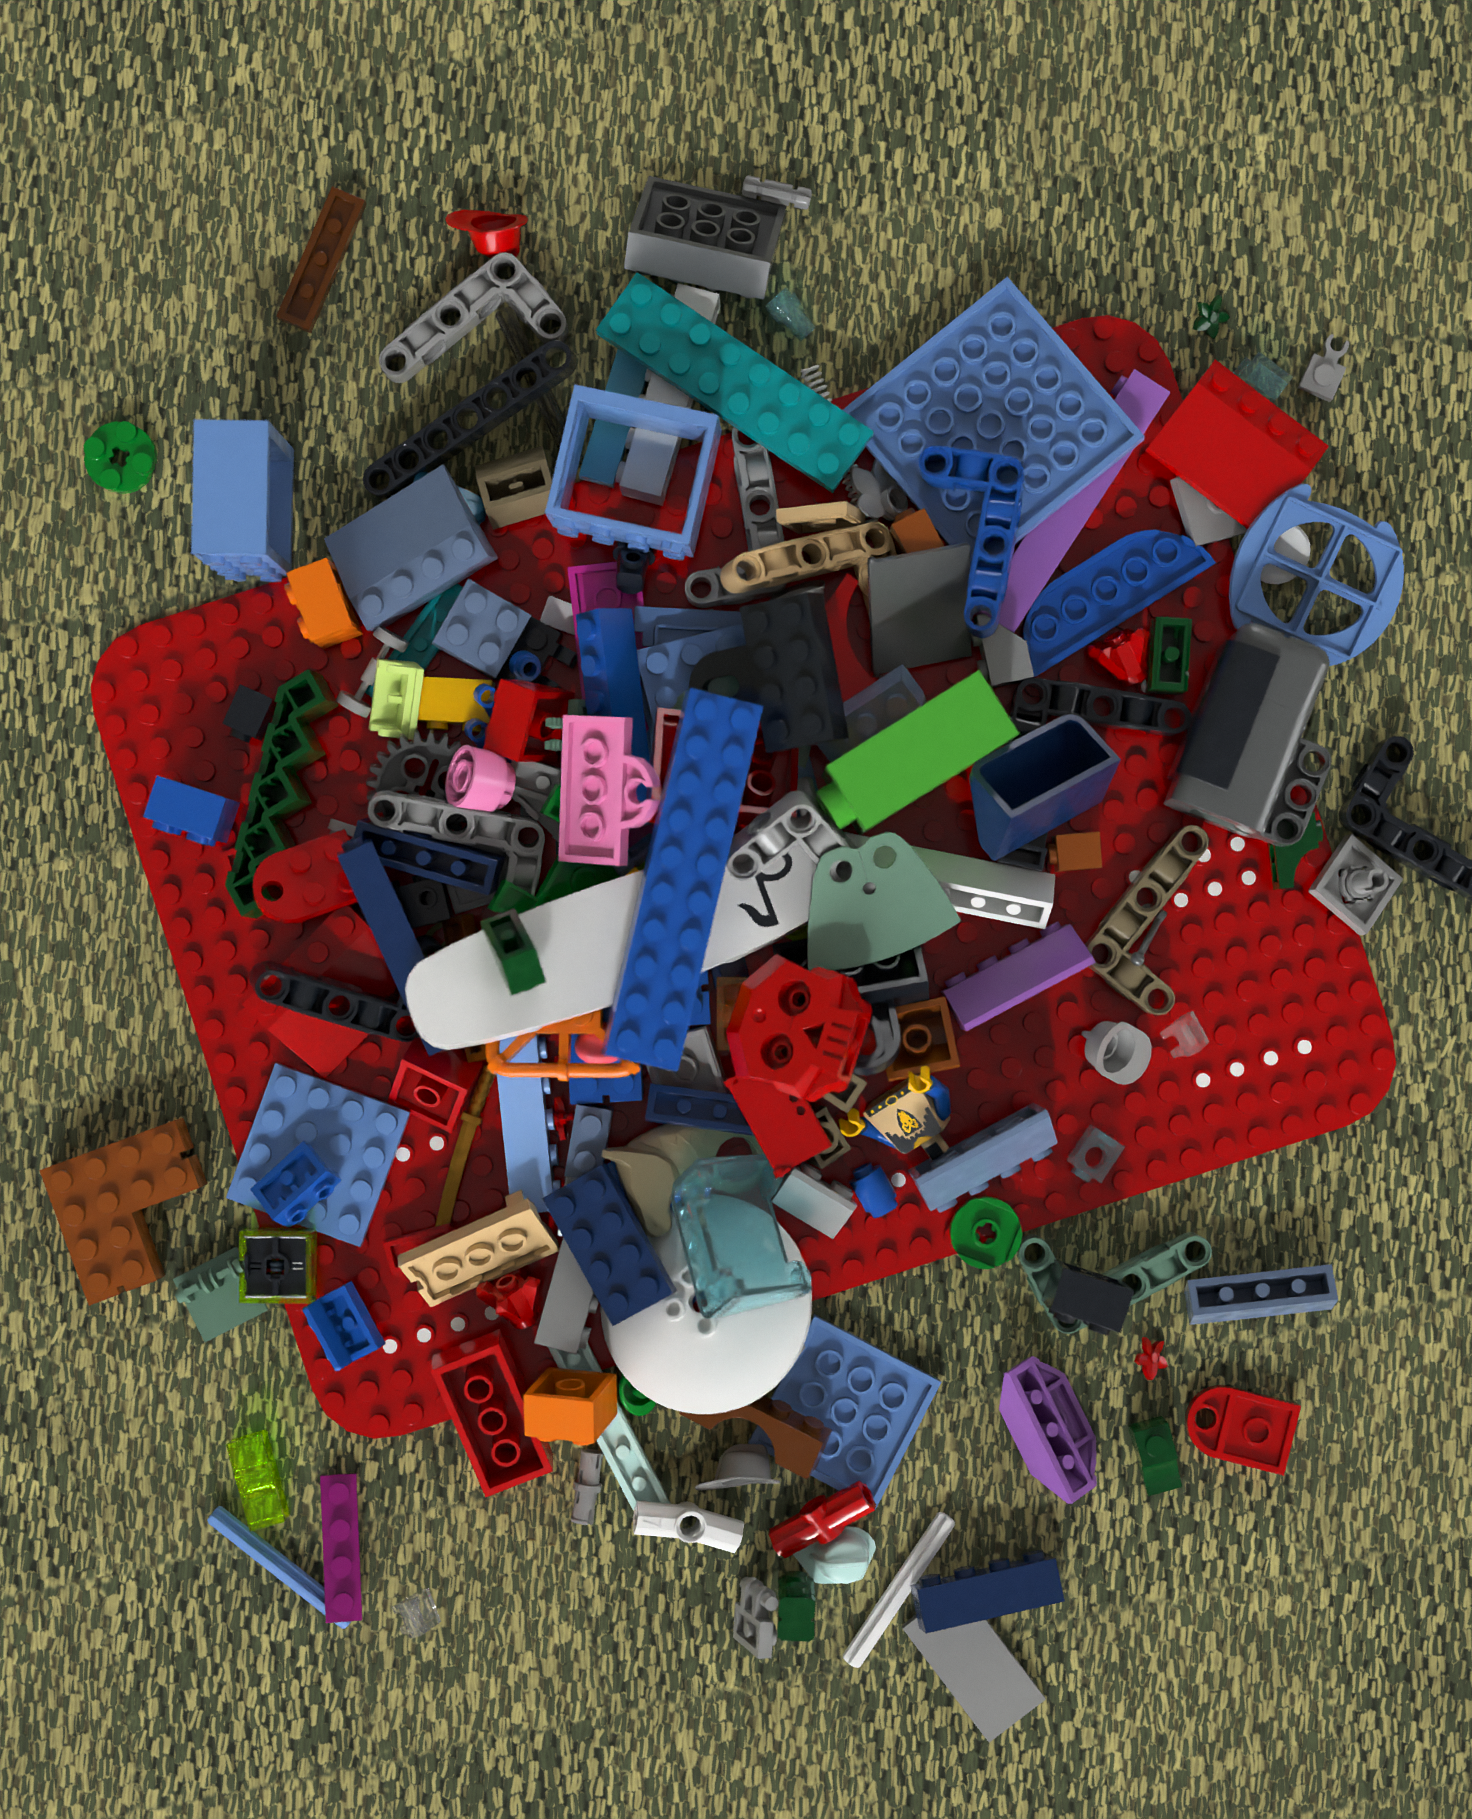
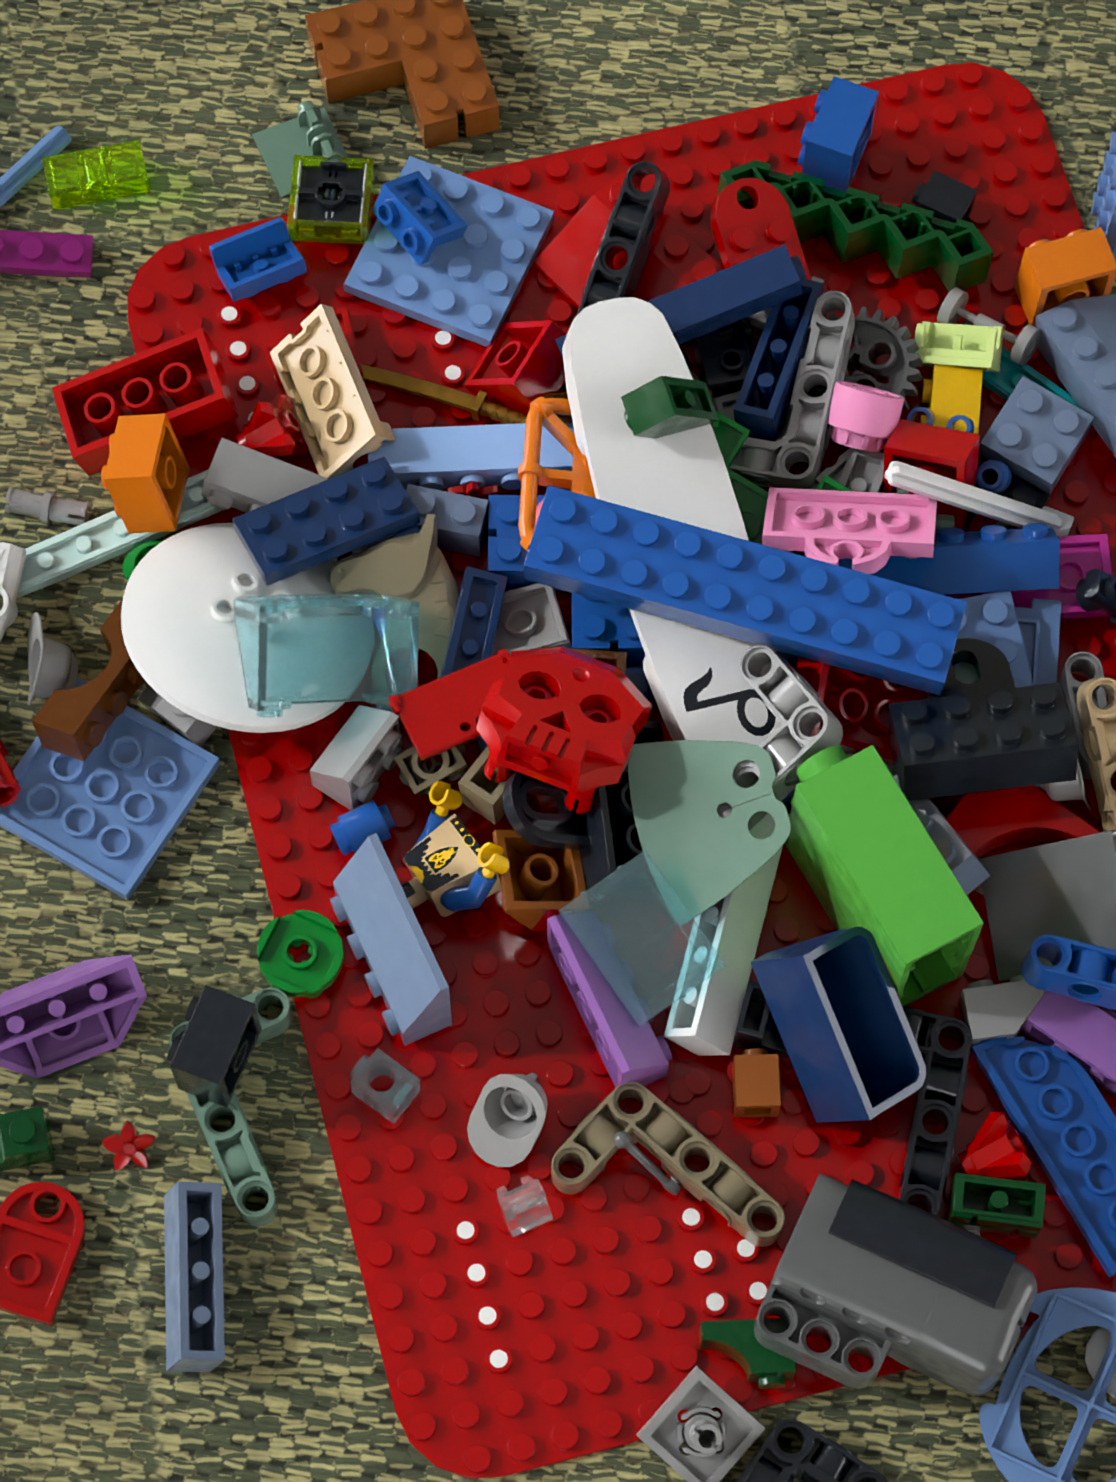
camera: 90 degrees right, 20 degrees down
(560, 684) = (968, 497): none -> white axle
(976, 951) = (642, 938): none -> clear light blue piece

